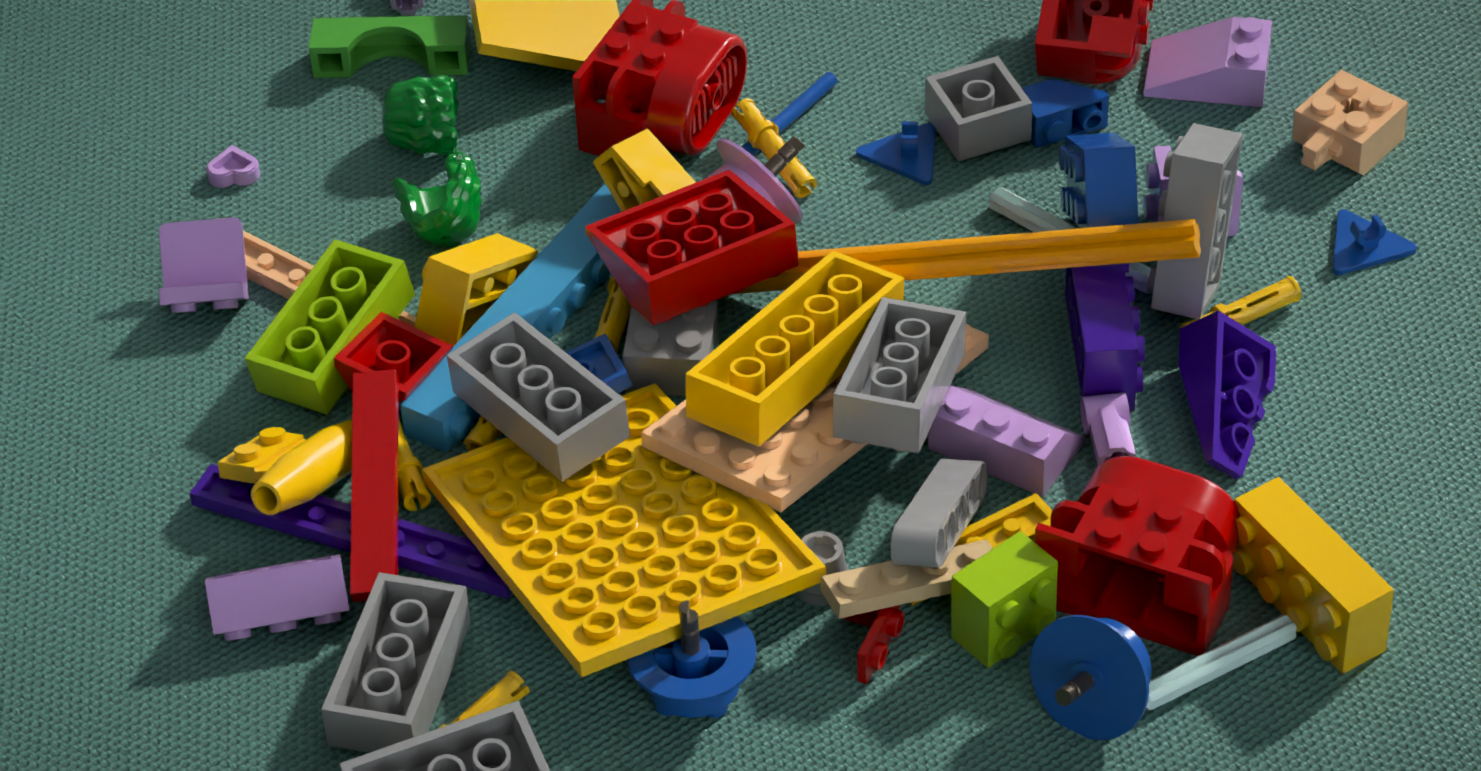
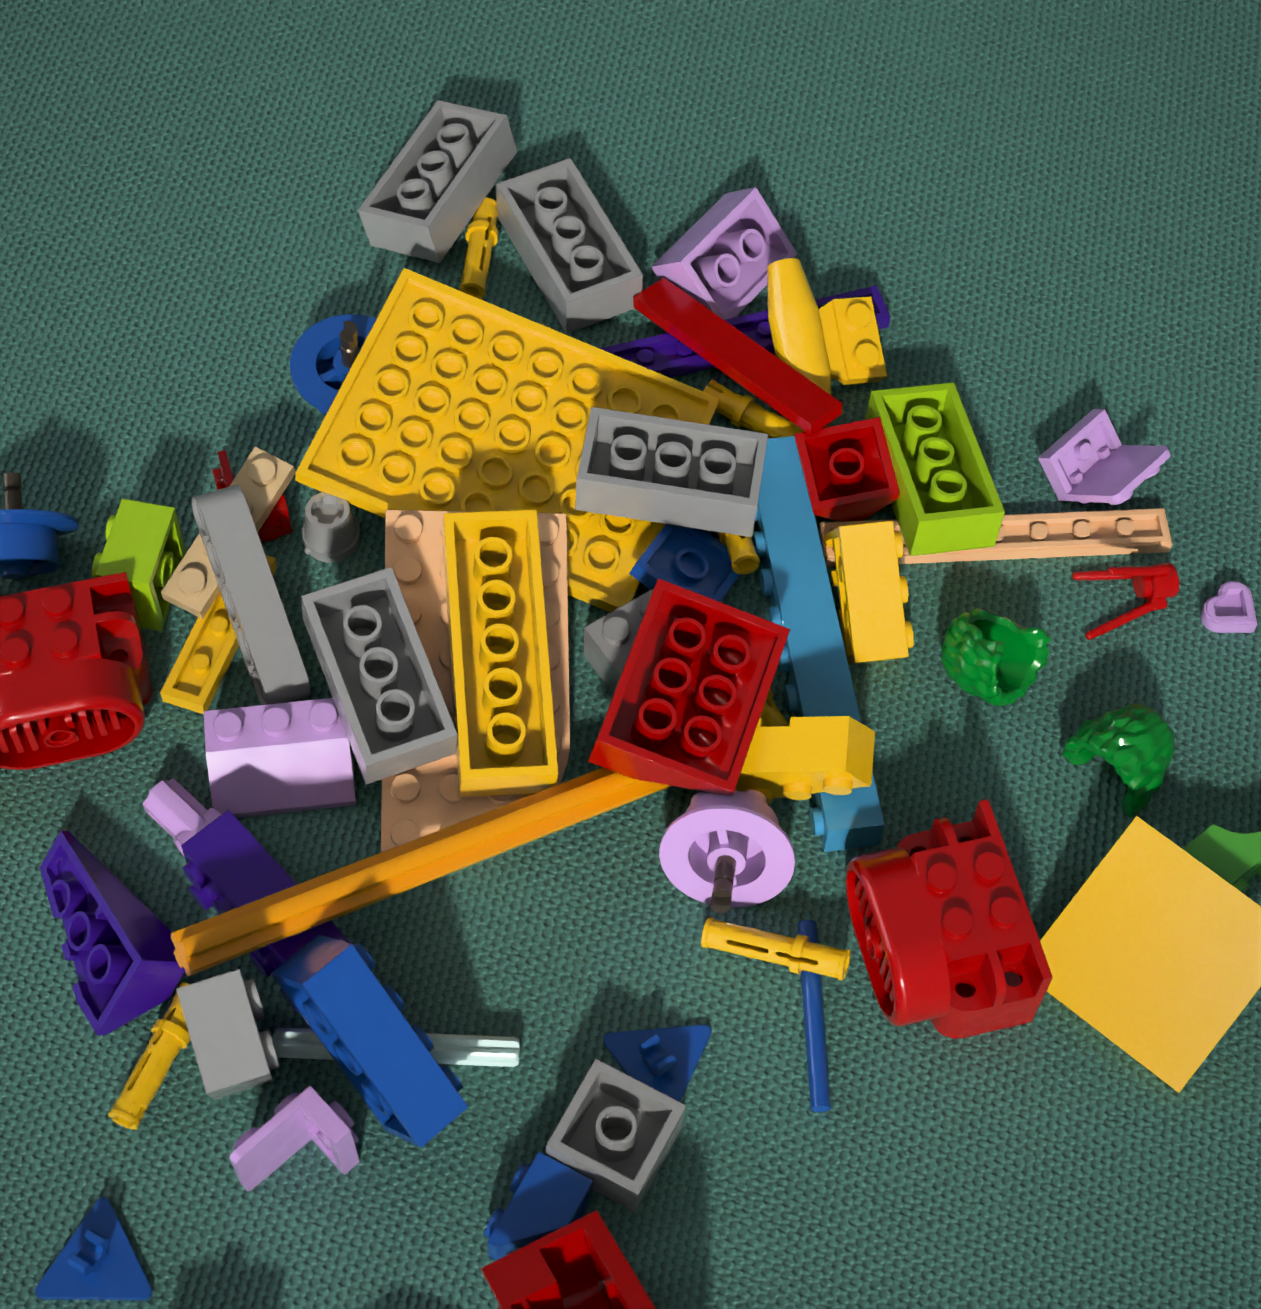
camera: 135 degrees right, 15 degrees up
(264, 200) = (1149, 582): none -> red plant

